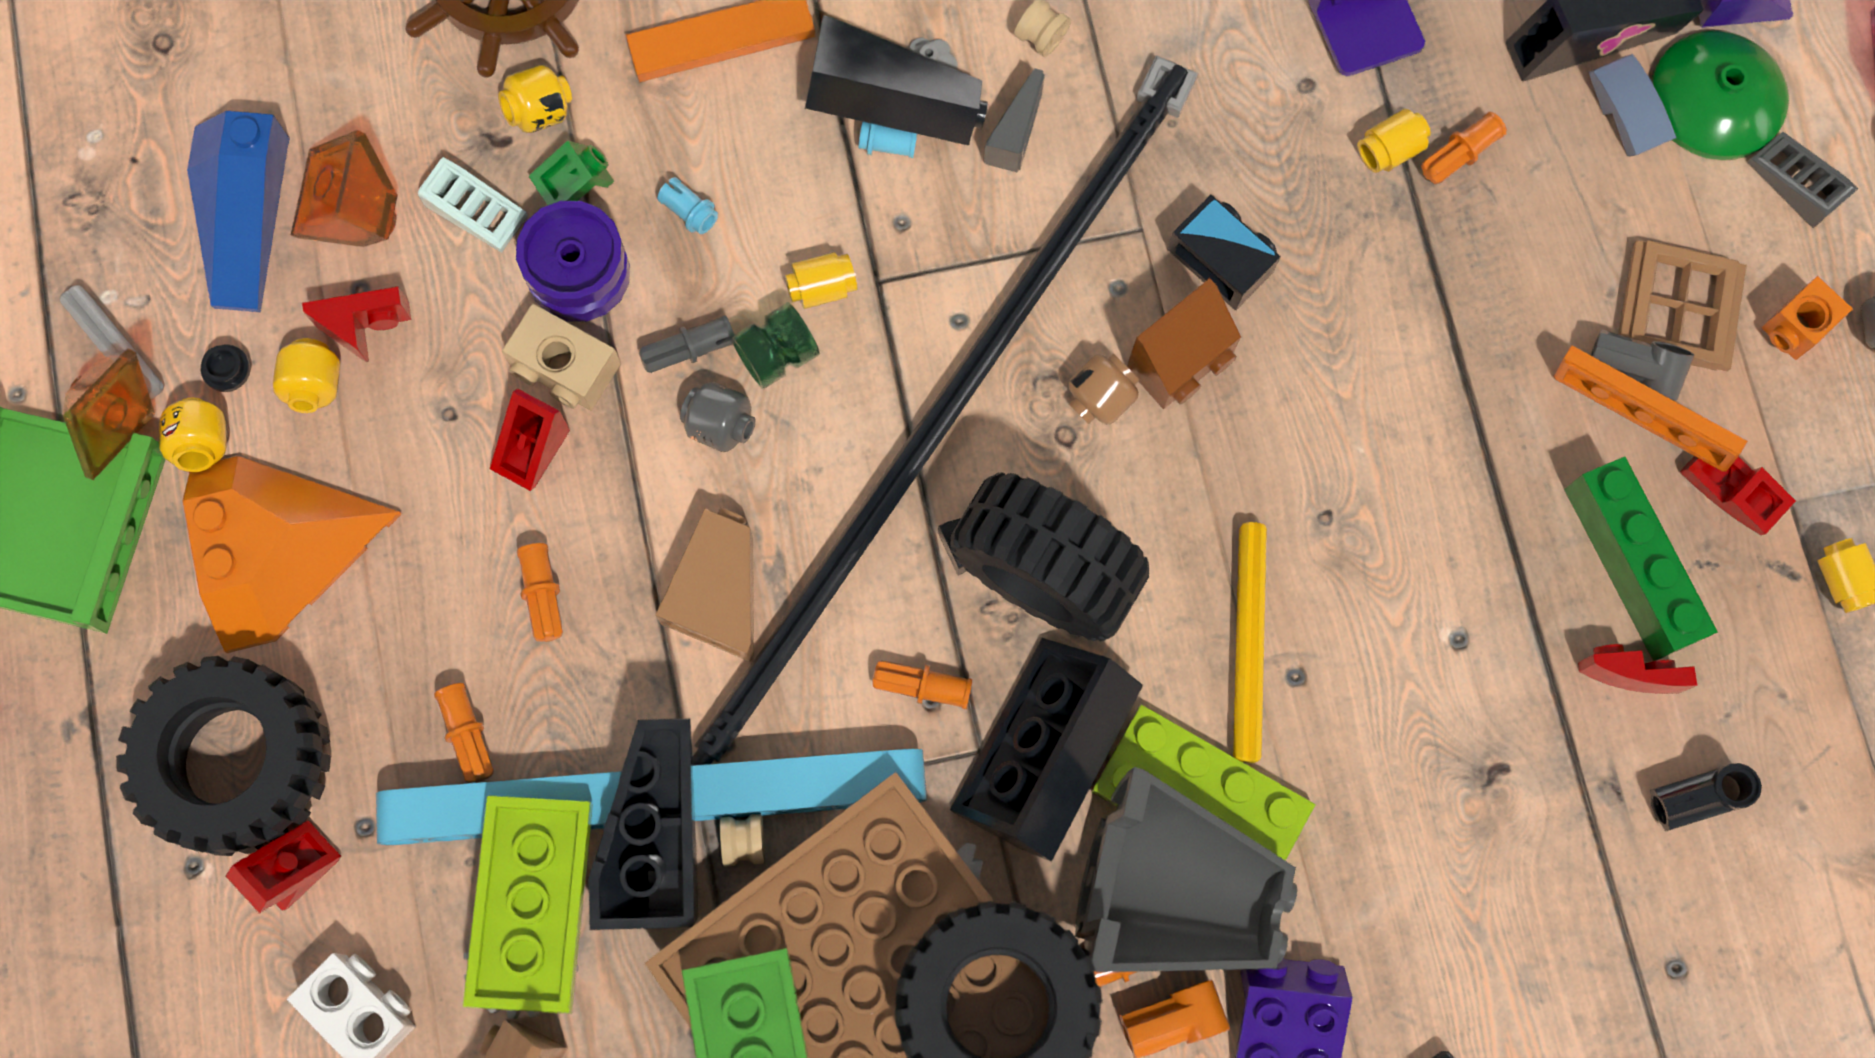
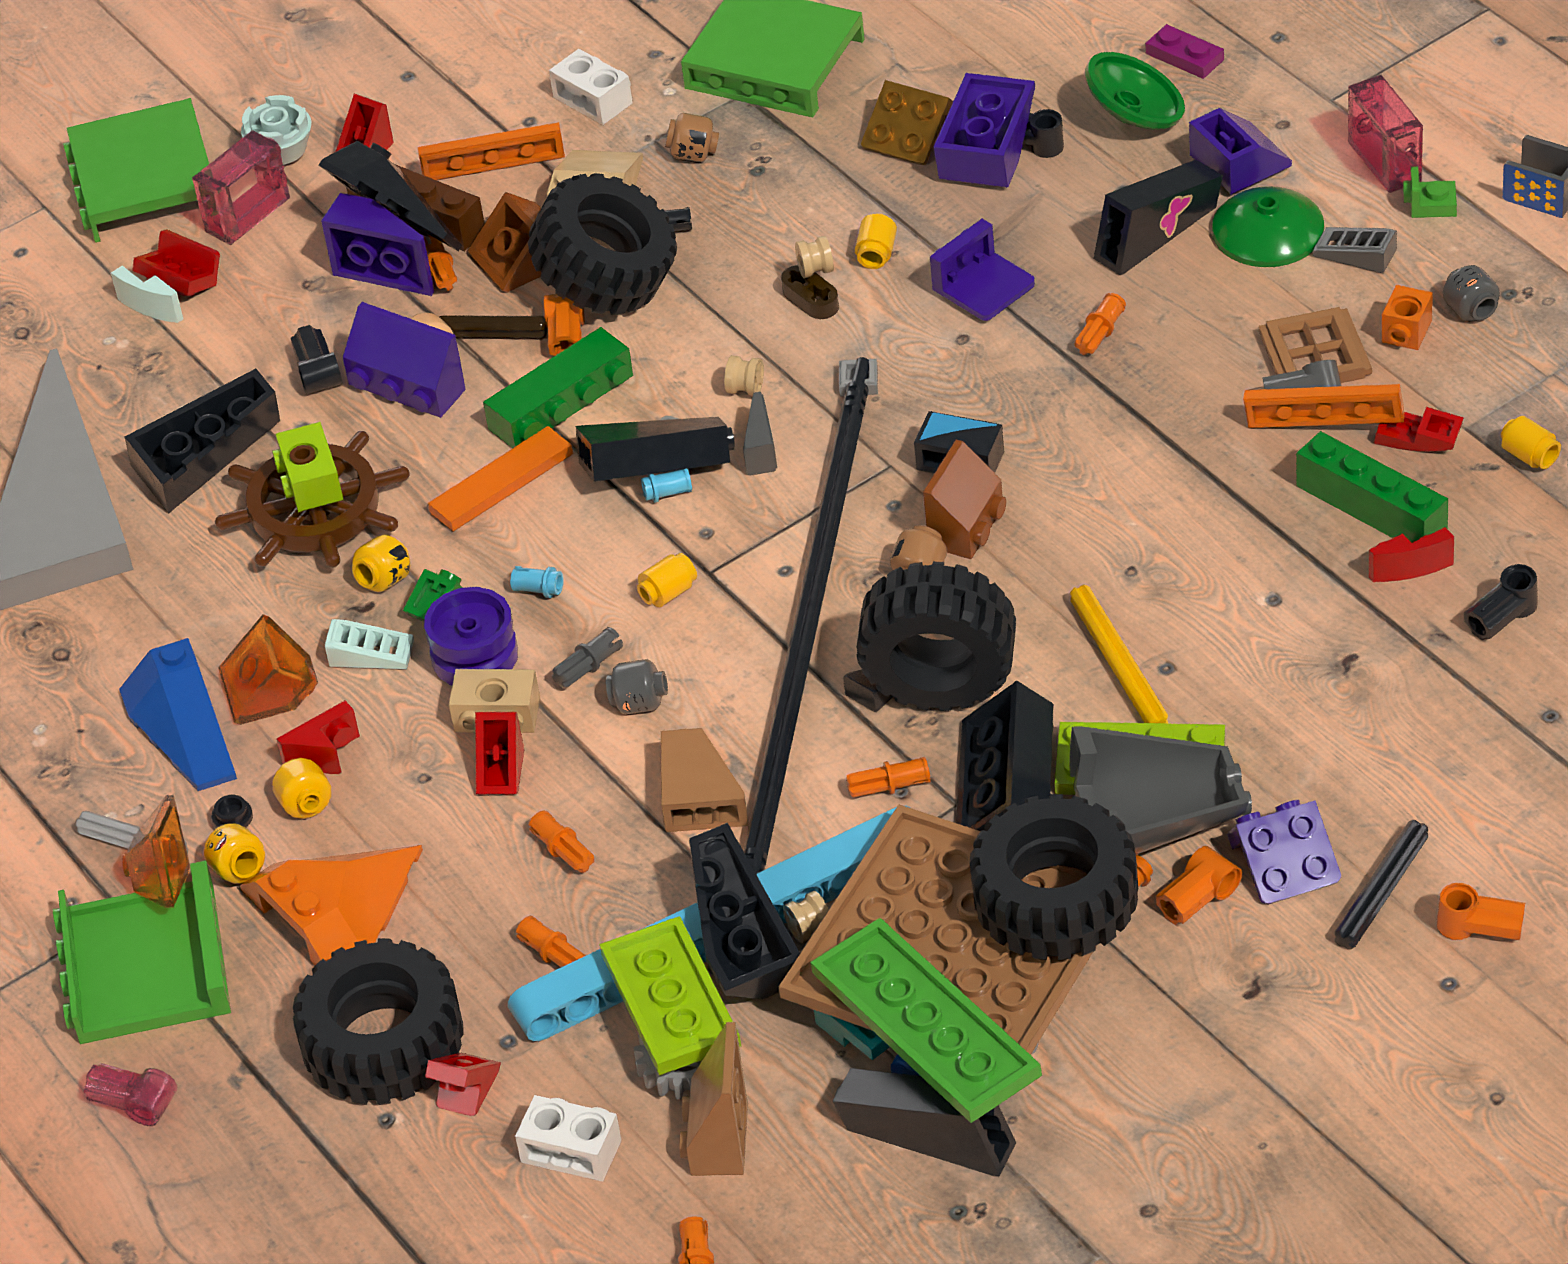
camera: 15 degrees left, 30 degrees down
(775, 345) = (655, 626): clear green wheel -> none
(1394, 141) = (1046, 338): yellow brick -> none
(1635, 104) = (1202, 248): sand blue slope -> none

